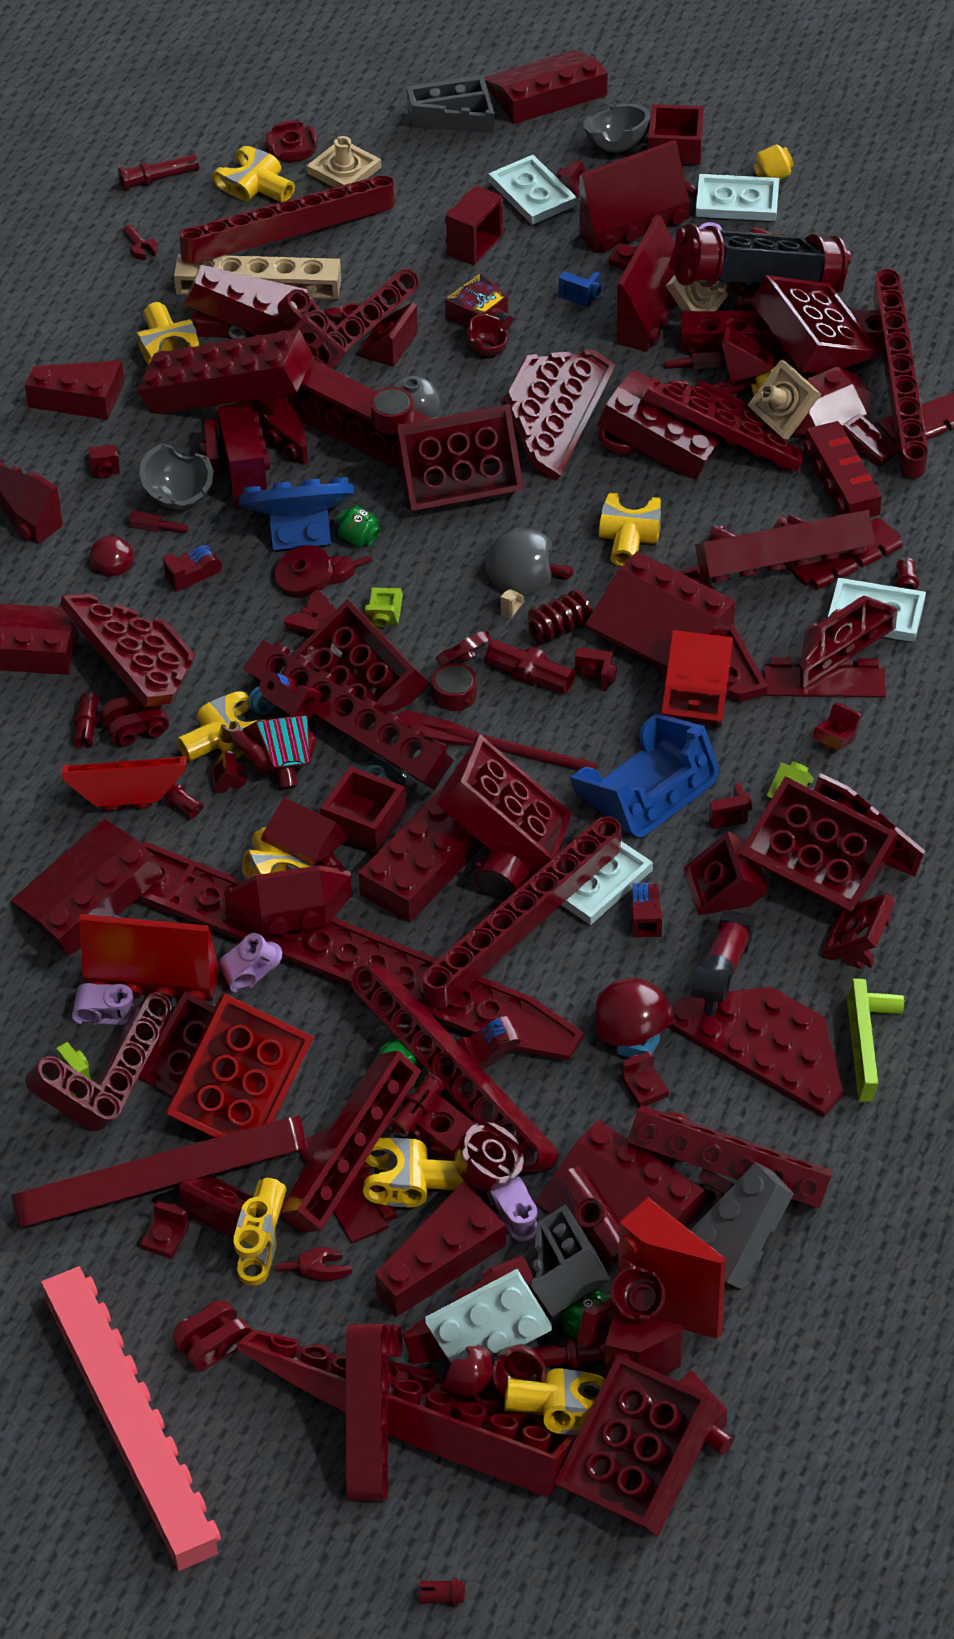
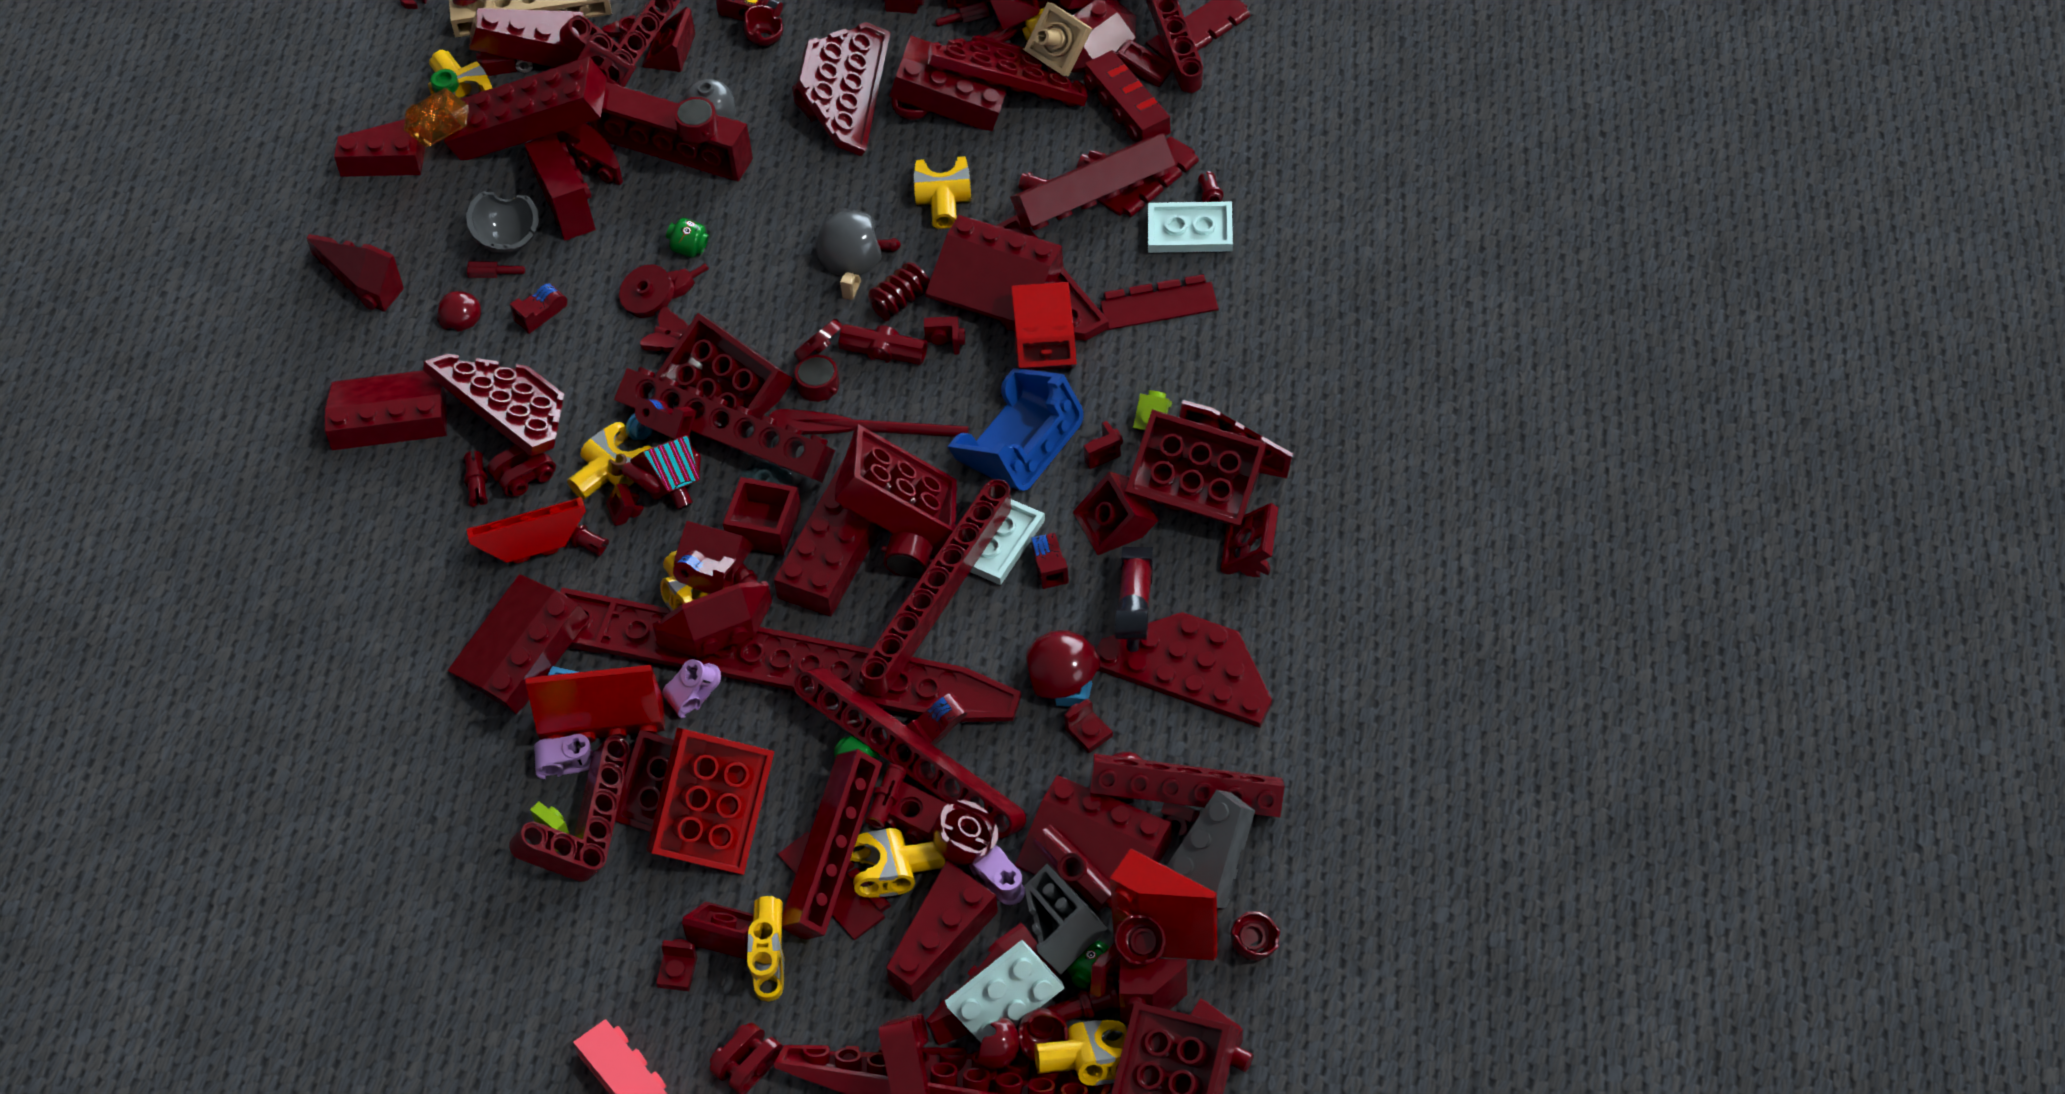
camera: 10 degrees left, 5 degrees up
(104, 460) = (428, 216): dark red bracket -> none
(134, 363) = (436, 117): none -> clear orange brick
(152, 333) = (444, 79): none -> green tile
(159, 1171) = (656, 910): dark red beam -> none
(210, 446) = (526, 184): dark red plate -> none
(287, 850) = (704, 573): none -> dark red leg
(299, 512) = (627, 237): blue bracket -> none
(313, 1267) = (823, 971): dark red hand -> none
(384, 606) = (731, 311): lime bracket -> none
(458, 457) = (768, 154): dark red slope -> none
(761, 1314) = (1251, 928): none -> dark red hair
(839, 728) = (1183, 349): dark red bracket -> none
(844, 635) = (1168, 259): dark red wedge -> none
(859, 1008) = (1268, 617): lime piece -> none

